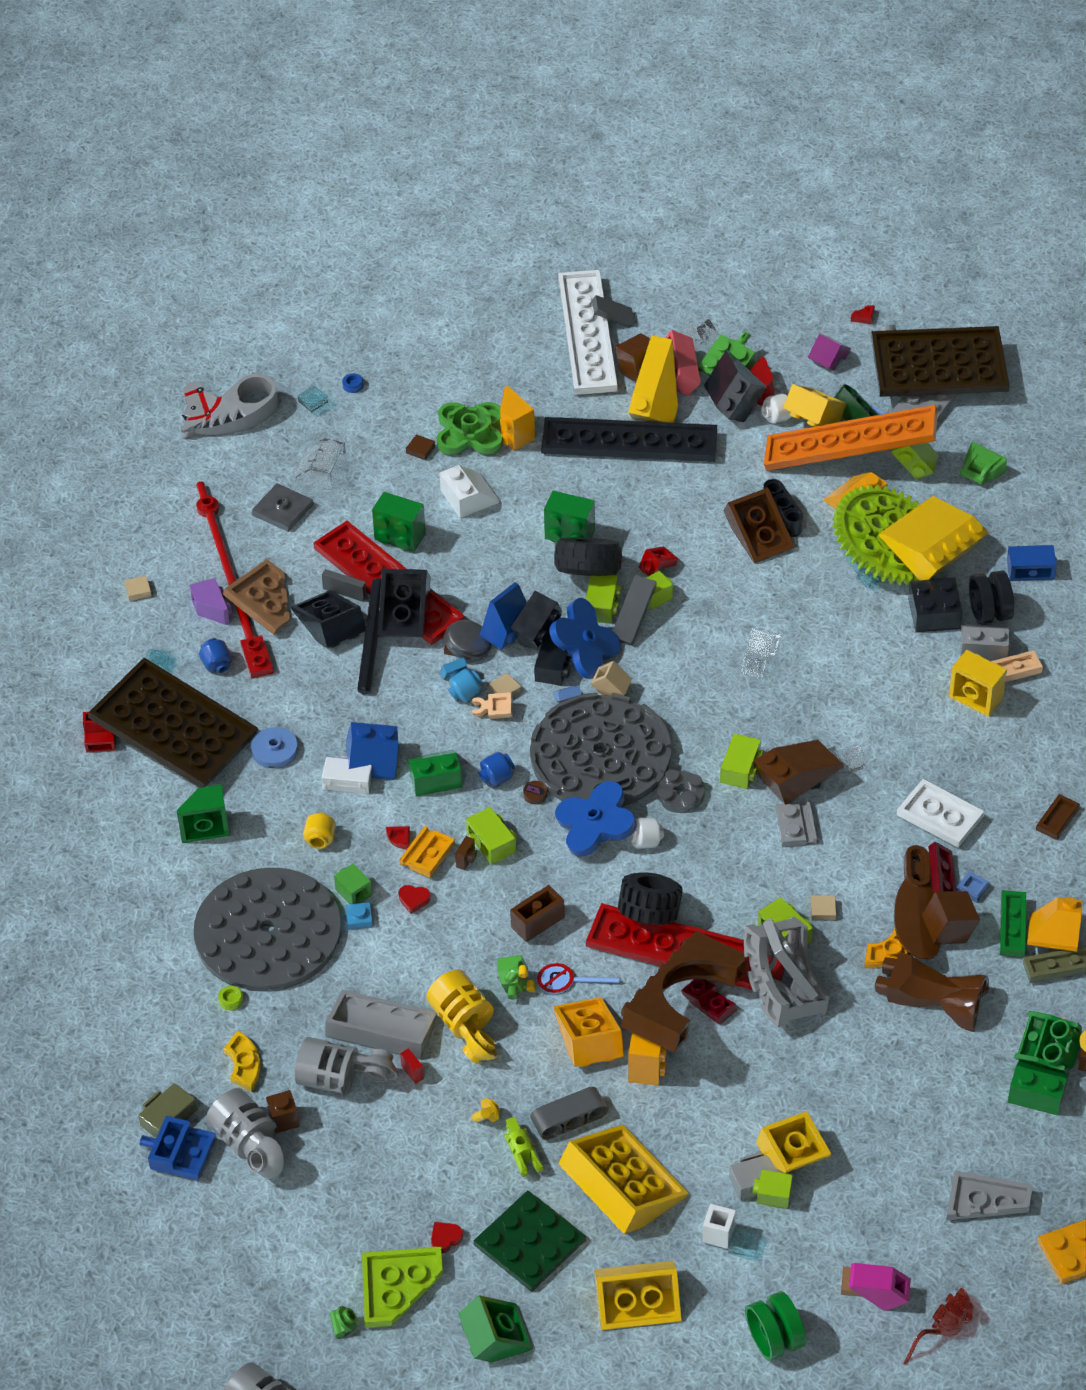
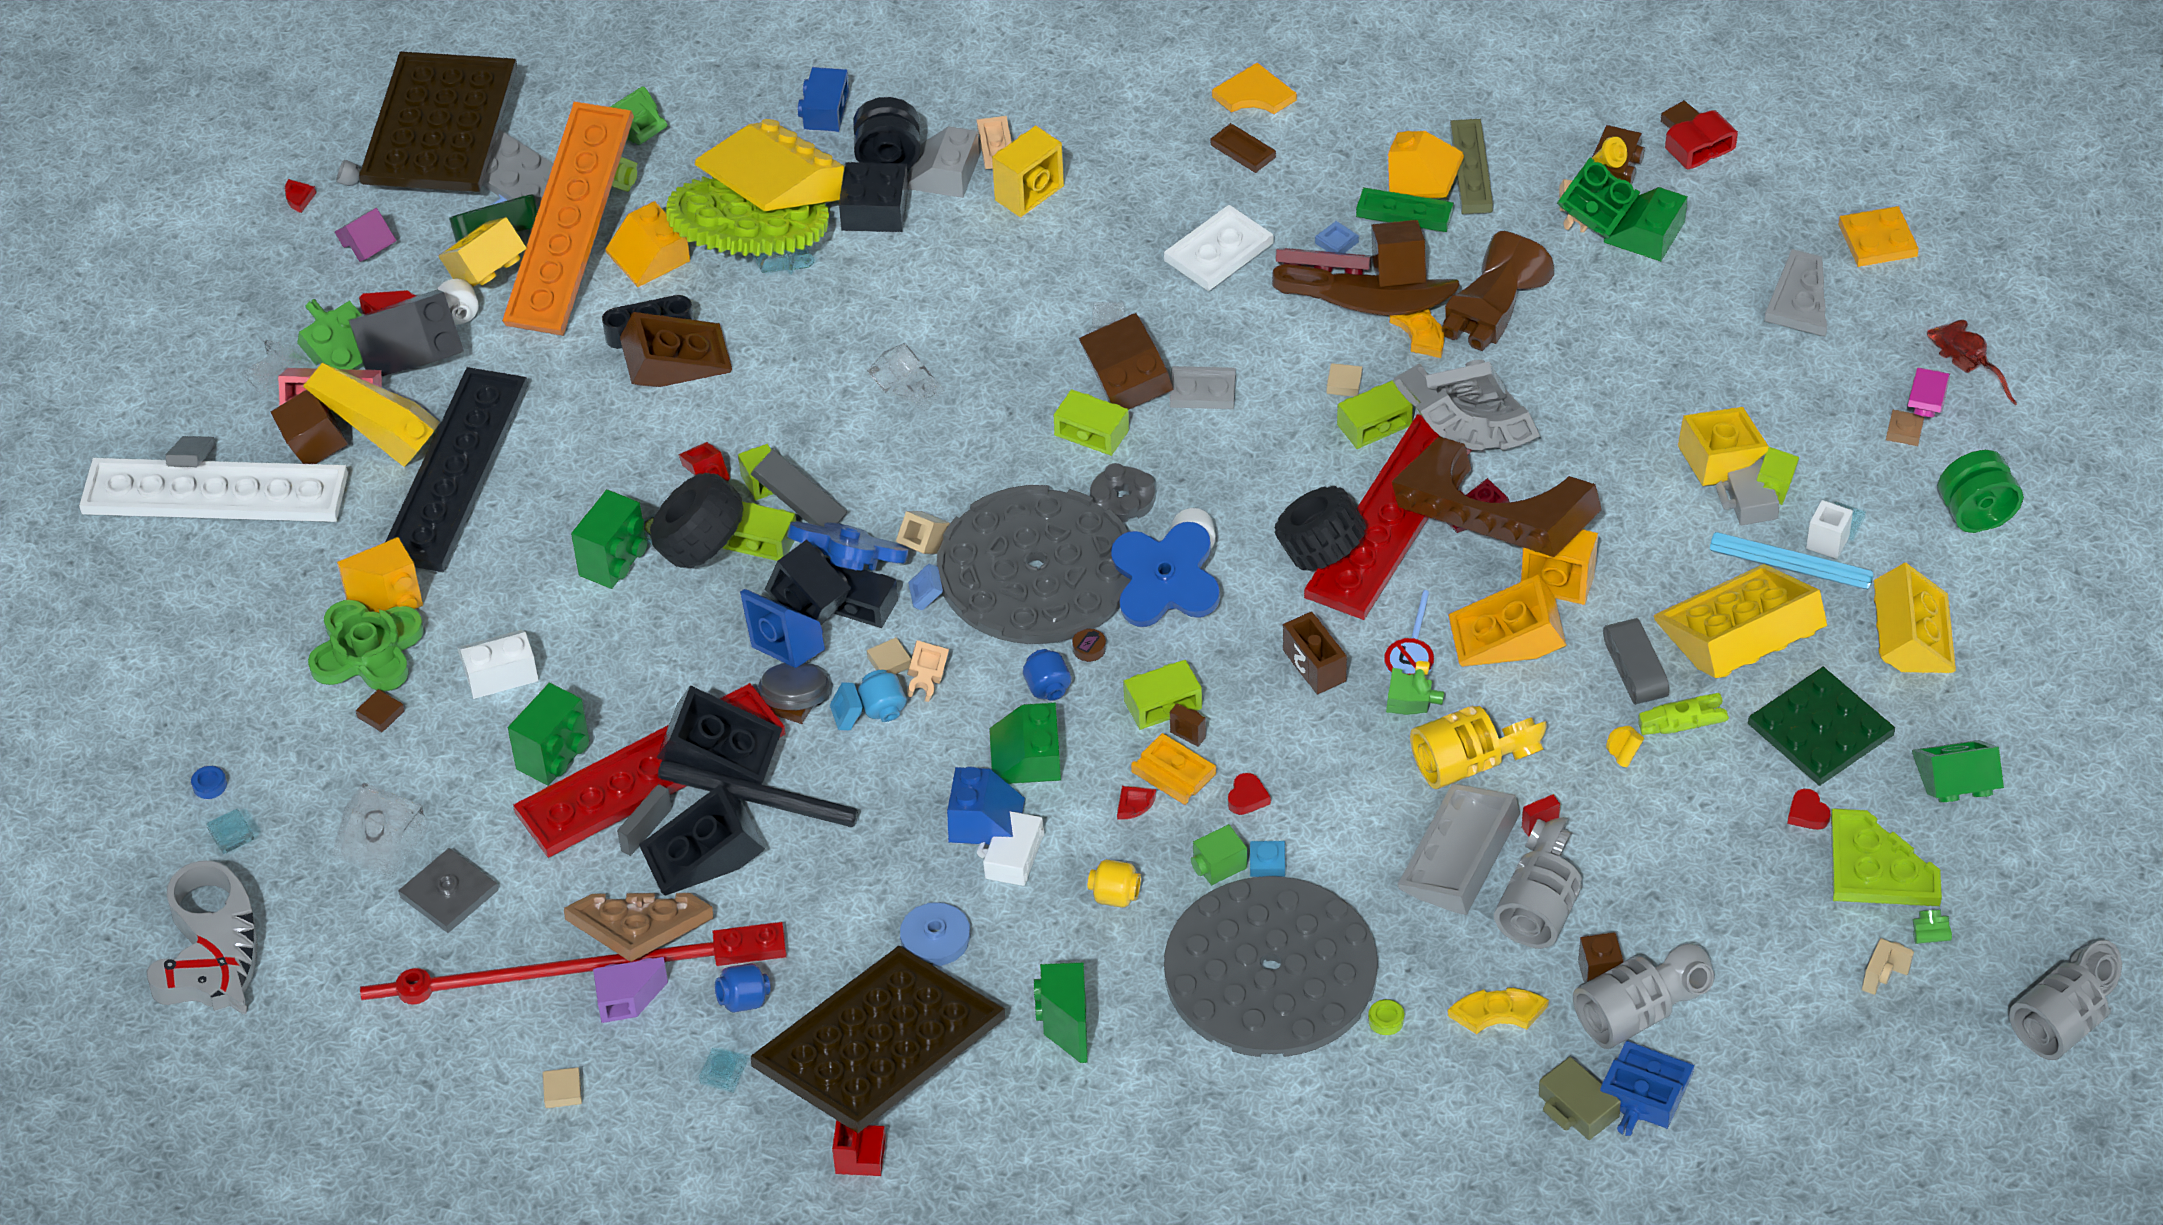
camera: 80 degrees left, 0 degrees up
(300, 1286) = (1885, 959): none -> tan bracket
(693, 1210) = (1791, 560): none -> medium azure axle

